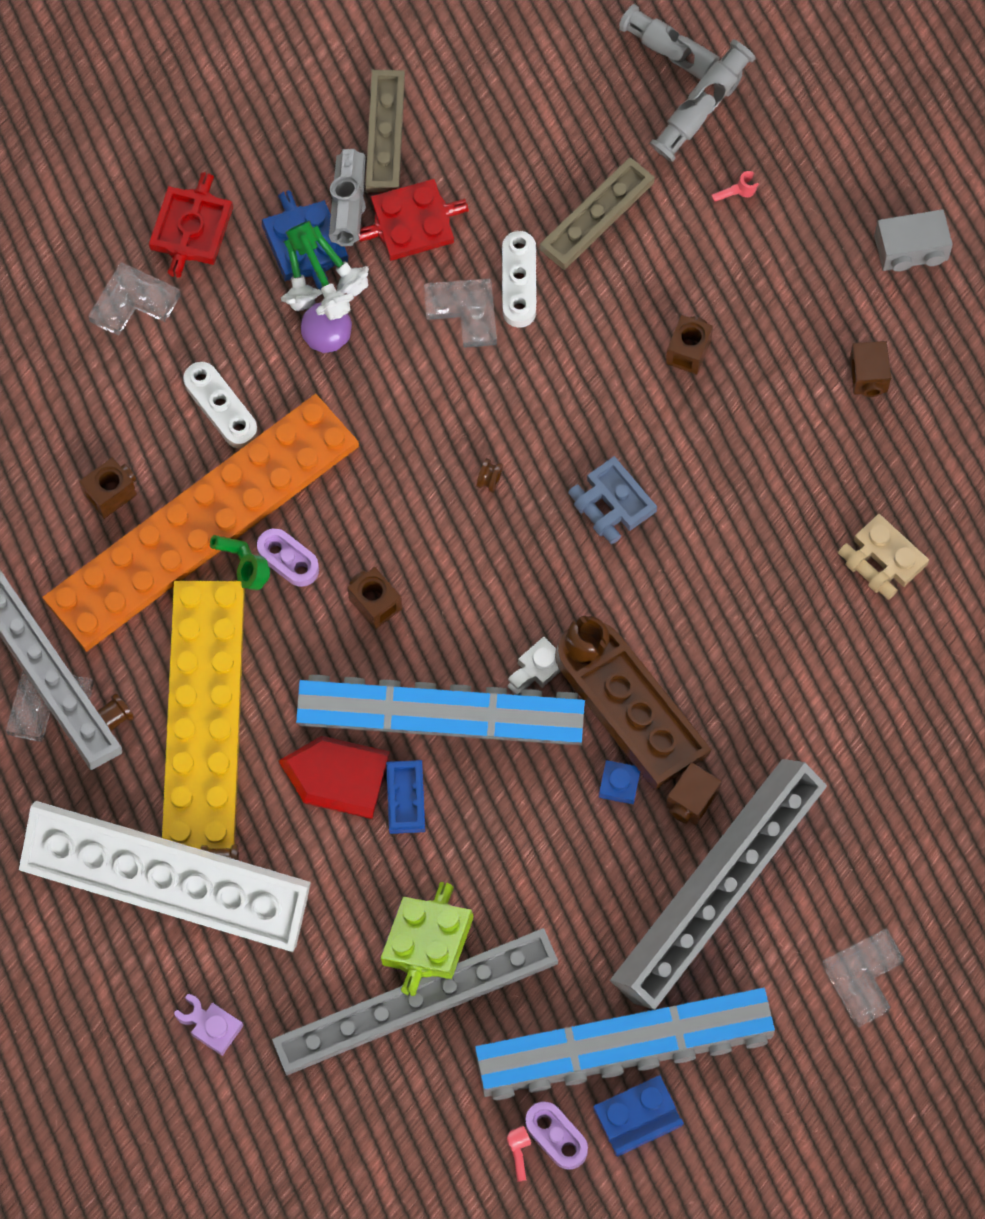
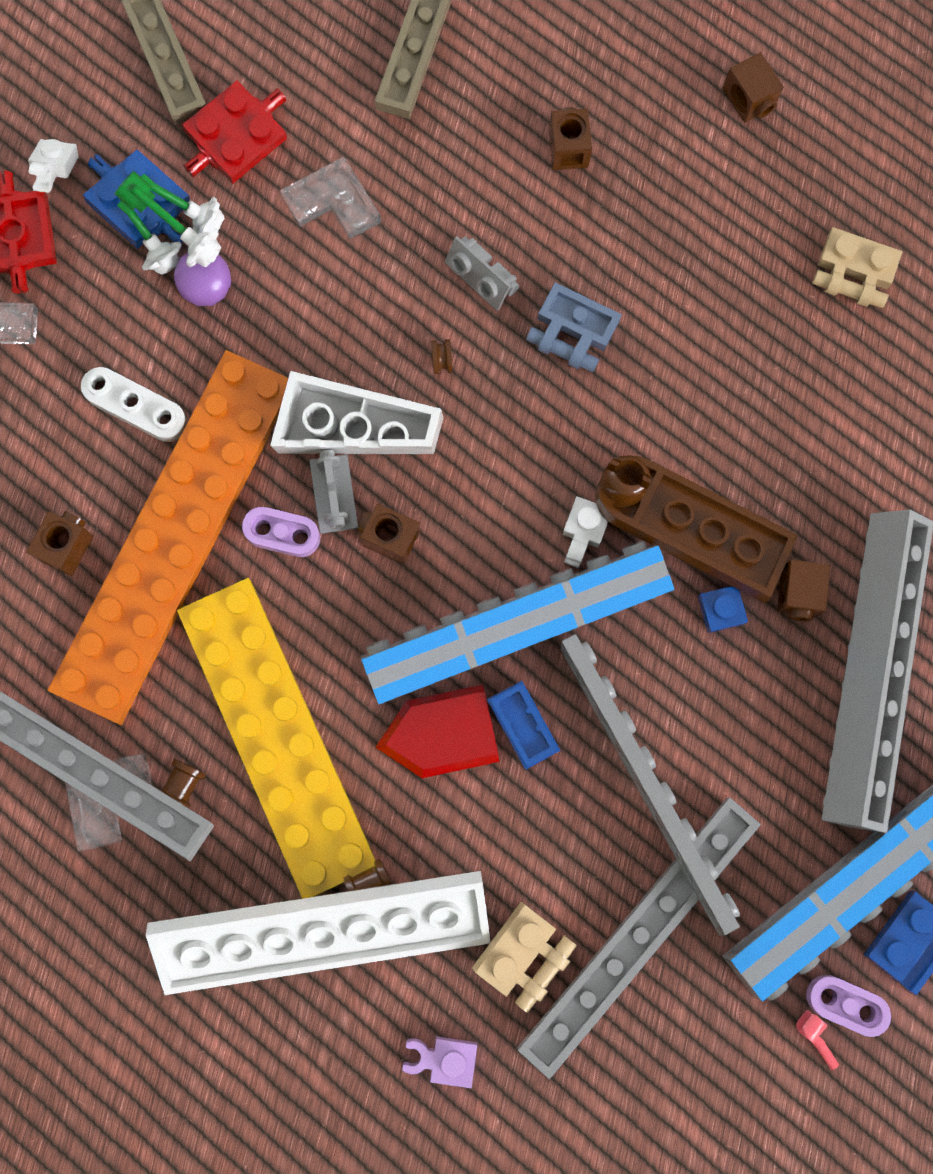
camera: 30 degrees left, 10 degrees up
(249, 180) = (50, 161): none -> white plate
(252, 569) = (251, 561): green plate -> none
(309, 964) = (515, 949): none -> tan plate
(346, 545) = (333, 492): none -> light grey hinge
(347, 197) = (159, 135): light grey piece -> none
(384, 491) = (351, 420): none -> white wedge
(427, 938) = (620, 865): lime plate -> none
(482, 895) = (656, 796): none -> light grey plate
(523, 289) = (373, 158): white plate -> none
(553, 408) = (471, 264): none -> light grey hinge

